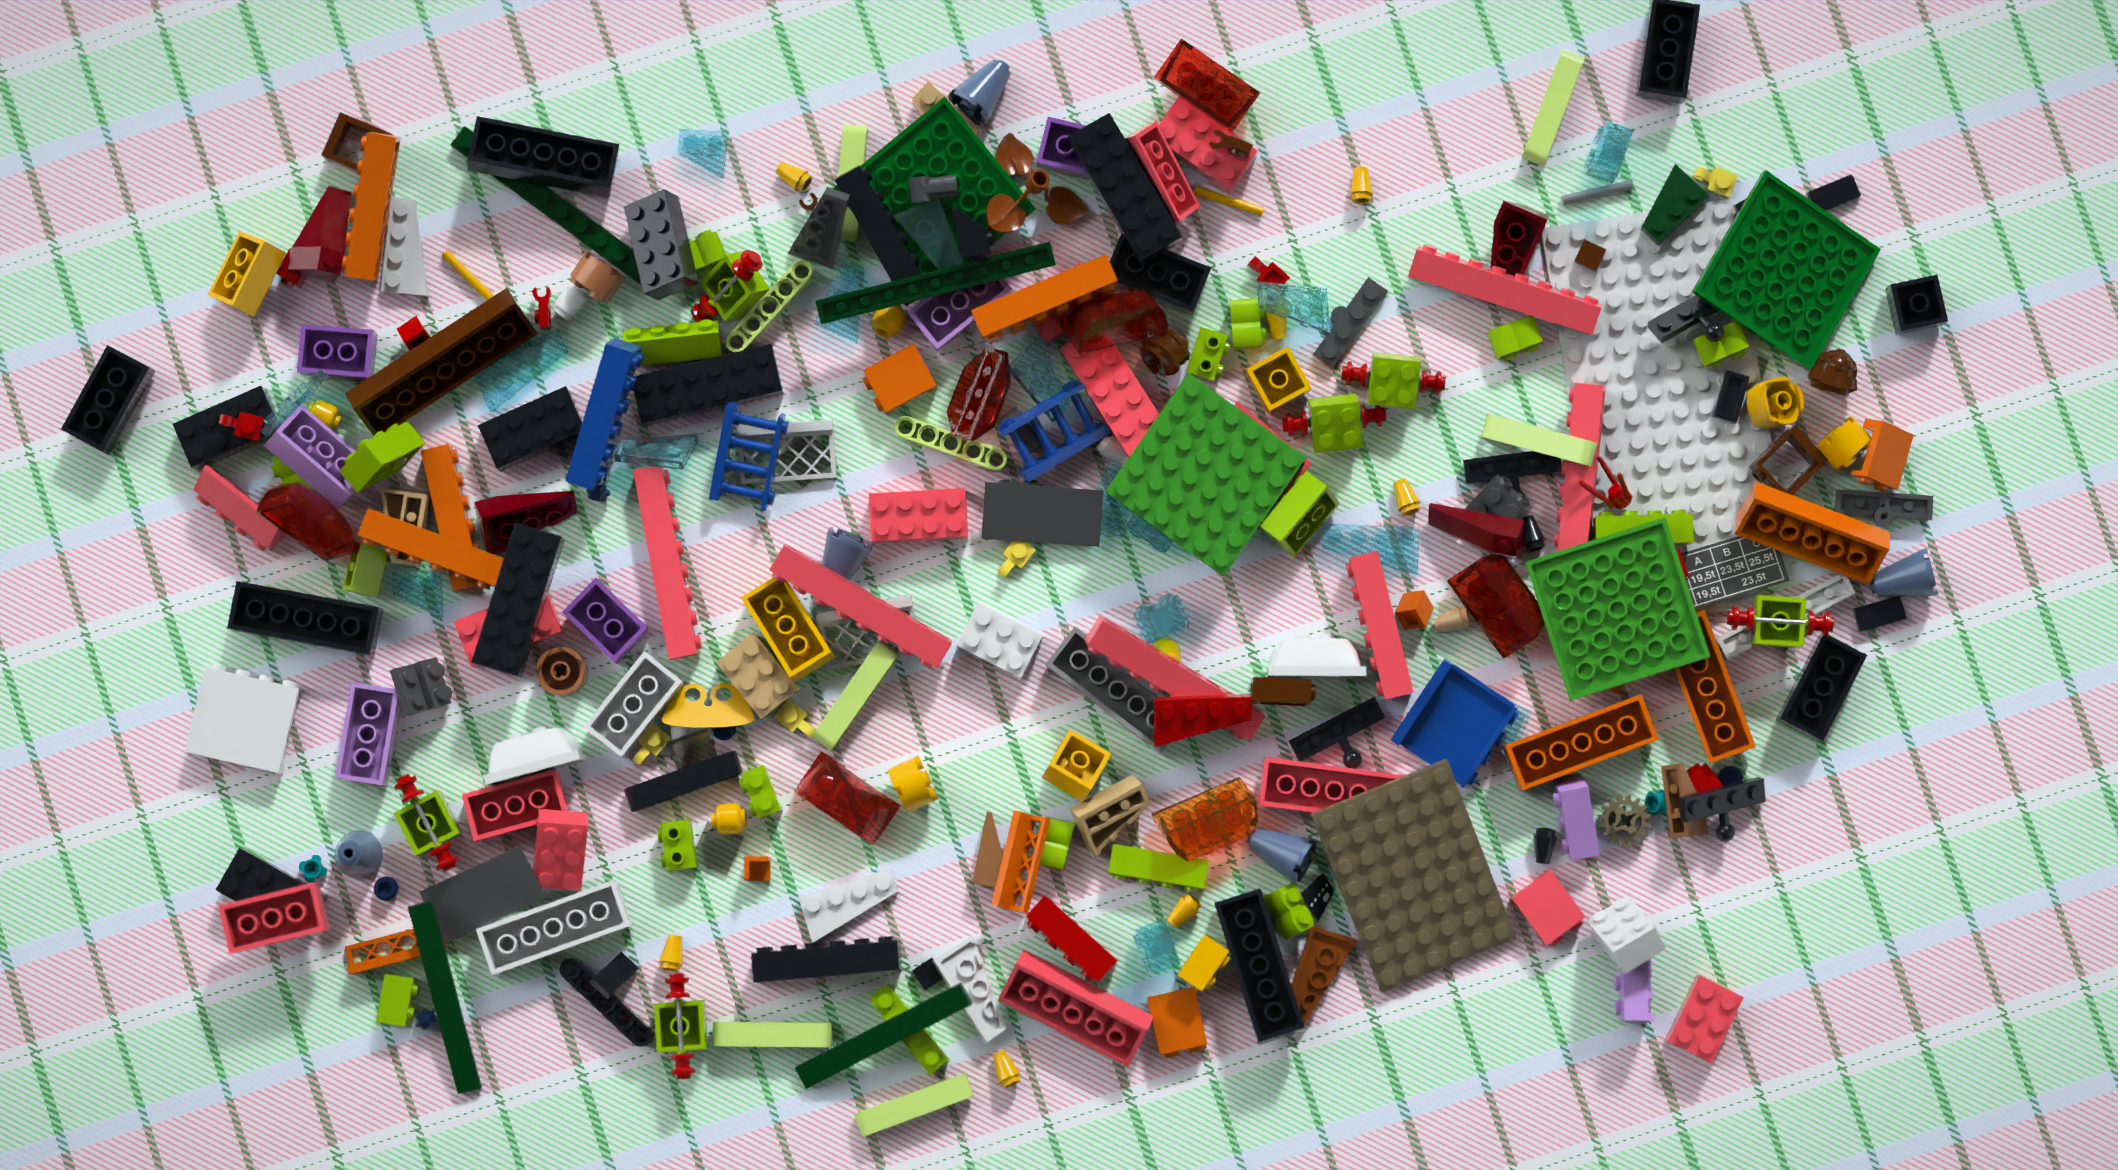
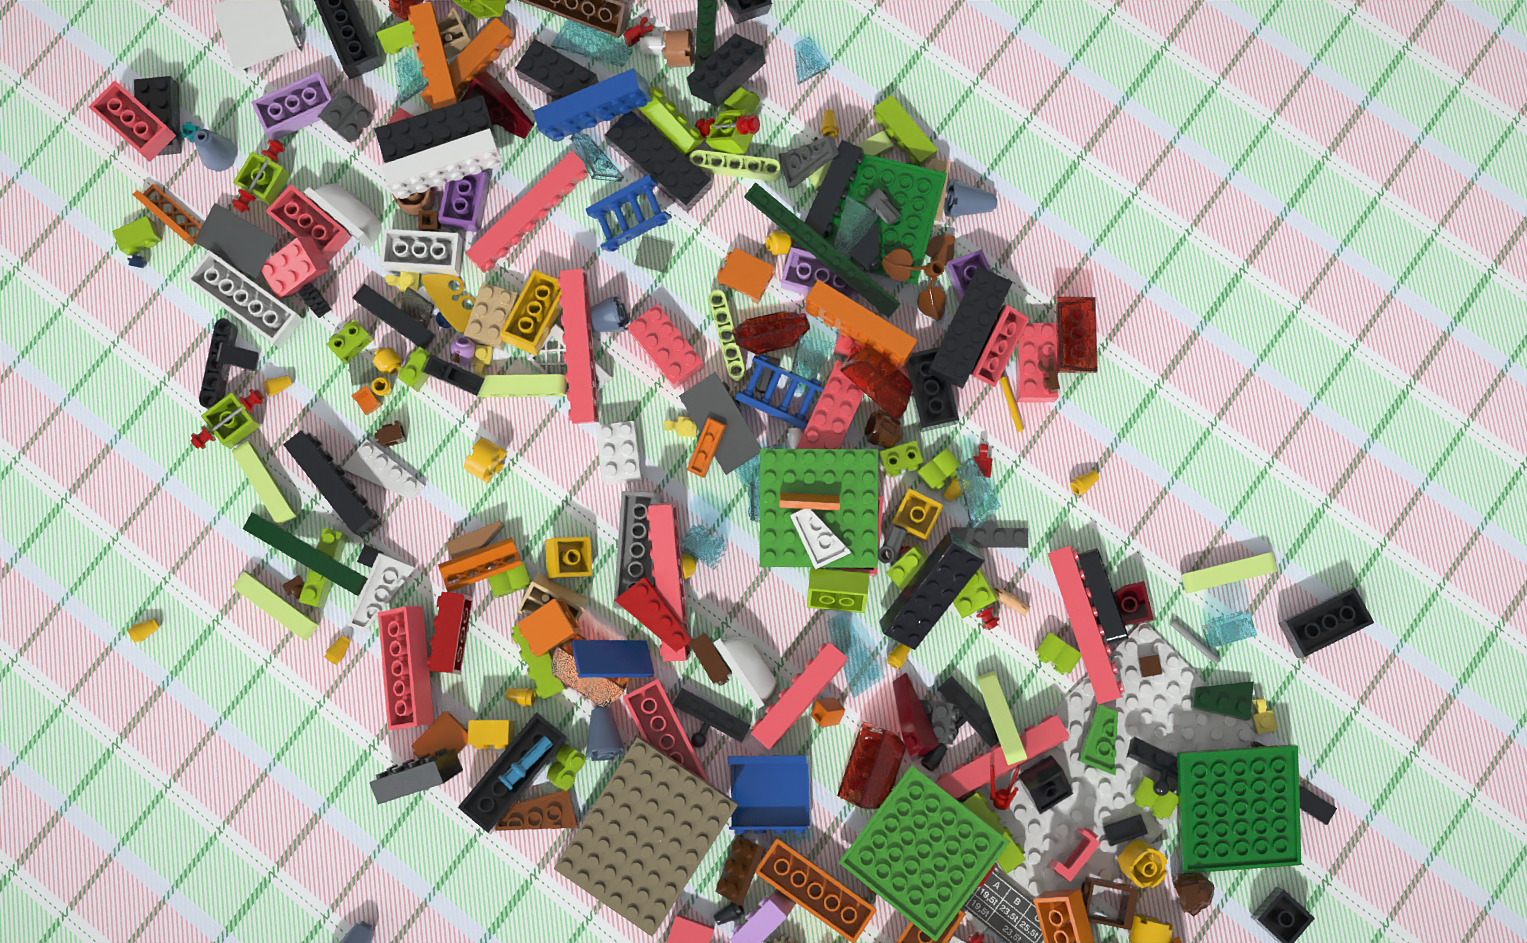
camera: 55 degrees right, 5 degrees down
(386, 888) = (206, 183): dark blue plate -> none
(444, 996) = (155, 262): dark green tile -> none
(562, 615) = (442, 164): none -> white brick
(599, 494) = (543, 142): dark blue plate -> none
(606, 674) = (428, 221): none -> reddish brown brick
(608, 852) = (314, 300): none -> black tyre
(749, 838) = (382, 386): none -> yellow cone
(774, 732) = (462, 351): none -> lavender head
(795, 429) = (666, 231): white fence -> none
(796, 758) = (452, 374): none -> black slope
(812, 868) = (390, 434): none -> reddish brown brick
(846, 279) = (757, 220): clear light blue wing -> none
(847, 798) = (449, 426): clear red windscreen -> none
(858, 103) = (904, 131): none -> lime brick
(911, 1069) = (294, 586): none -> reddish brown plate
(1057, 546) = (706, 447): none -> orange tile
(1137, 832) = (548, 626): none -> orange panel
(1157, 947) = (482, 694): clear light blue brick -> none
(1195, 479) = (809, 501): none -> orange tile
(1196, 1065) = (416, 775): none -> brick
(1213, 788) = (612, 658): none -> blue tile
(1238, 497) = (817, 538): none -> white wing
(1262, 955) = (519, 769): none -> dark azure pin
(1291, 424) = (893, 542): none -> dark grey piece
(1318, 895) = (590, 779): black sticker -> none
(1368, 420) = (931, 591): none -> black brick
(1431, 346) = (1012, 602): none -> light nougat pin
(1452, 620) = (839, 743): tan cone -> none
(1490, 252) = (1103, 596): none -> black beam
(1510, 804) = (739, 870): none -> reddish brown plate
(1630, 359) = (1099, 744): none -> bright green wing
(1633, 443) = (1045, 784): none -> black slope
(1725, 460) = (1078, 857): none -> coral panel

